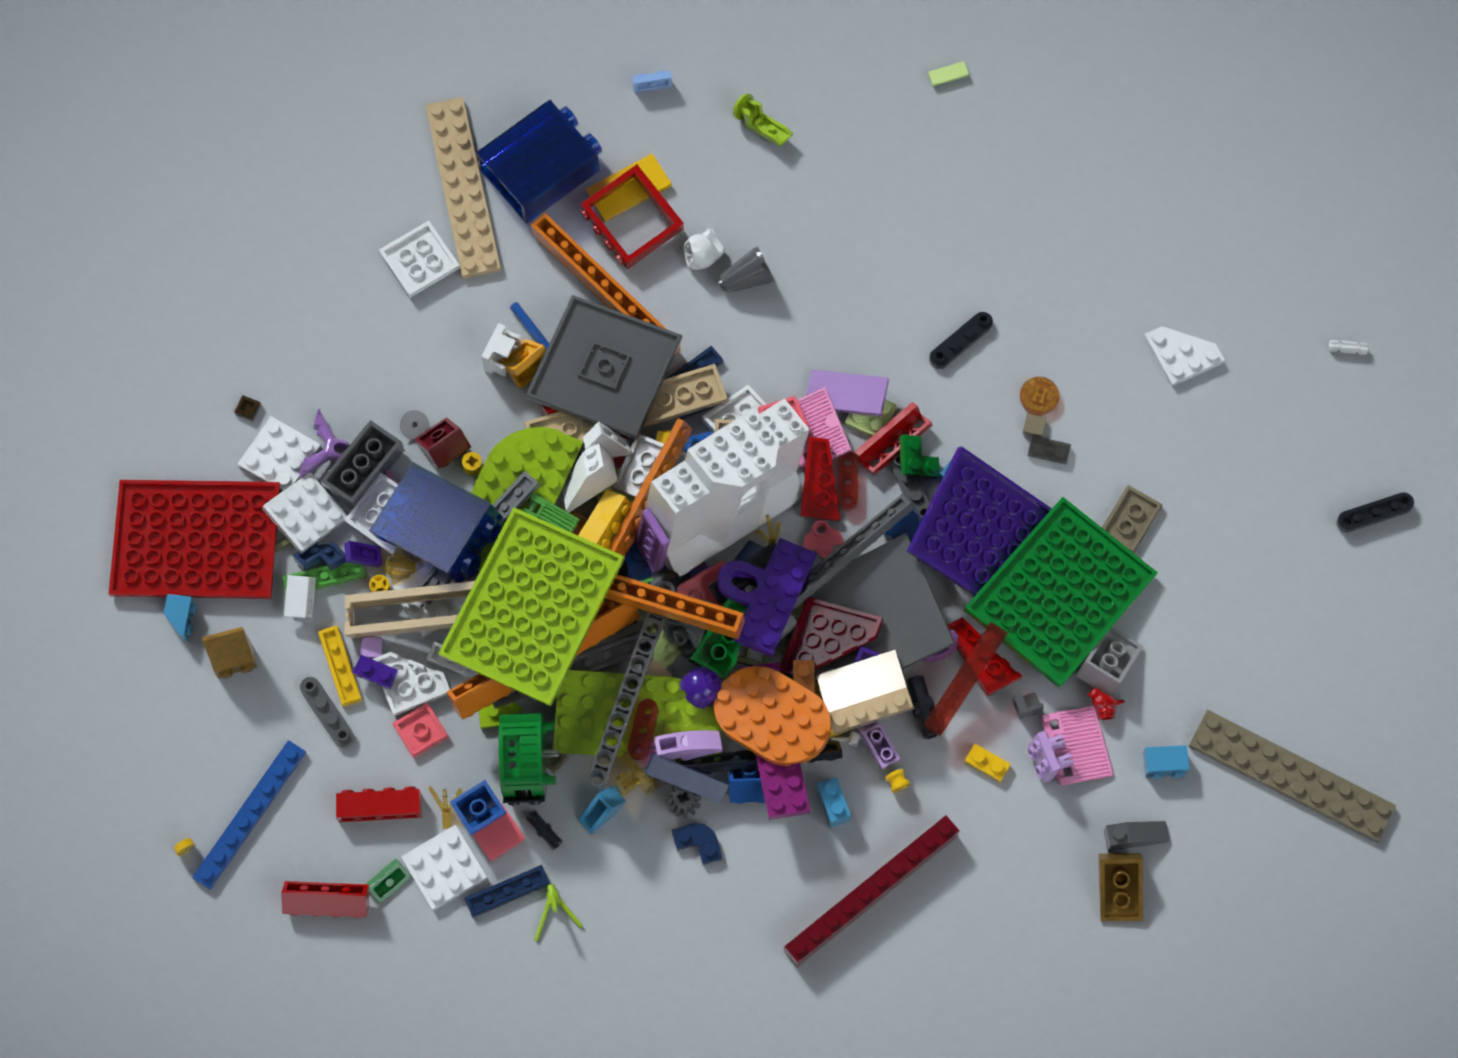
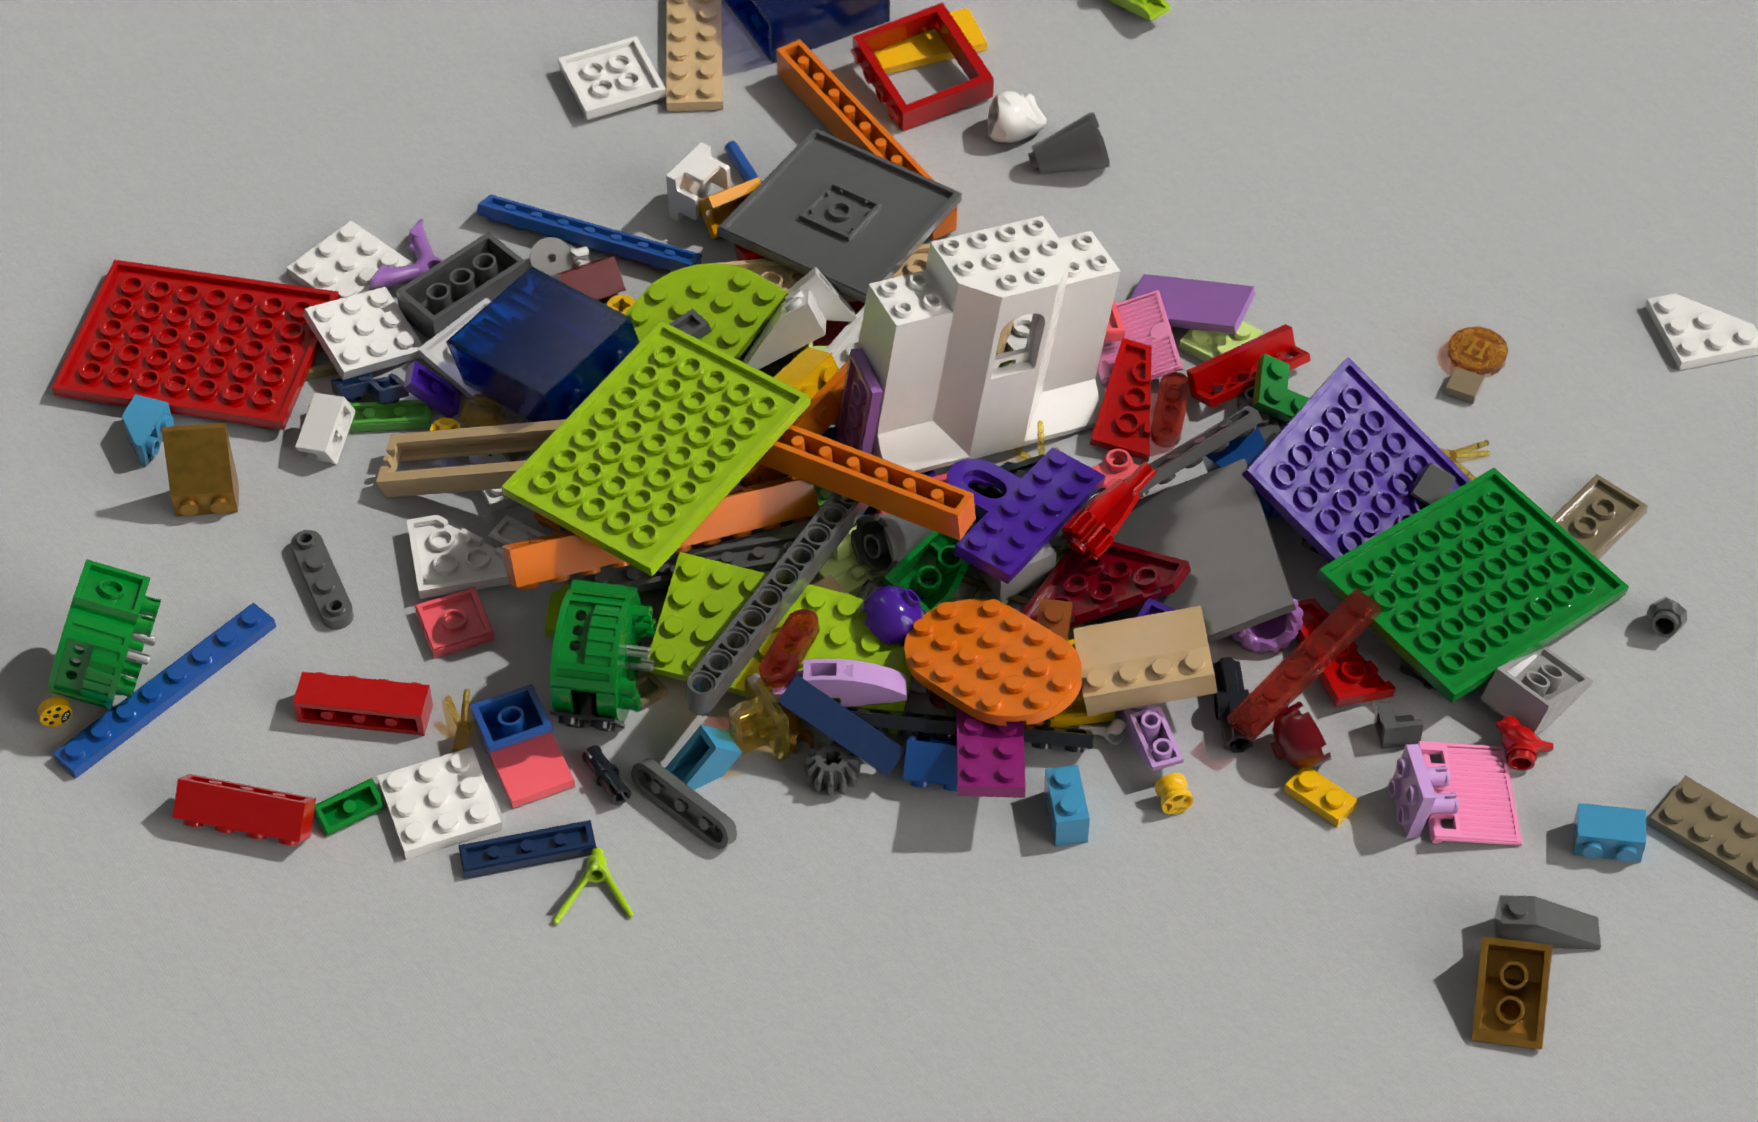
camera: 10 degrees right, 20 degrees down
(206, 802) = (104, 636): none -> green piece
(247, 408) = (321, 209): dark brown tile -> none
(339, 666) = (358, 526): yellow tile -> none
(372, 647) = (411, 507): lavender tile -> none
(375, 672) = (407, 533): dark purple plate -> none
(432, 418) = (580, 255): none -> white hand
(435, 401) = (586, 233): none -> blue plate
(592, 840) = (684, 803): none -> dark grey plate
(700, 836) = (846, 822): dark blue plate -> none
(824, 591) = (1095, 527): none -> red piece
(871, 891) = (1101, 934): dark red brick -> none
(961, 340) = (1370, 272): black plate -> none
(968, 729) = (1298, 739): none -> dark red cylinder
(1025, 522) = (1432, 484): none -> dark grey slope
(1033, 486) = (1467, 452): none -> clear yellow plant
(1049, 450) = (1482, 417): clear smoke plate -> none
(1183, 592) = (1666, 617): none -> dark grey rock

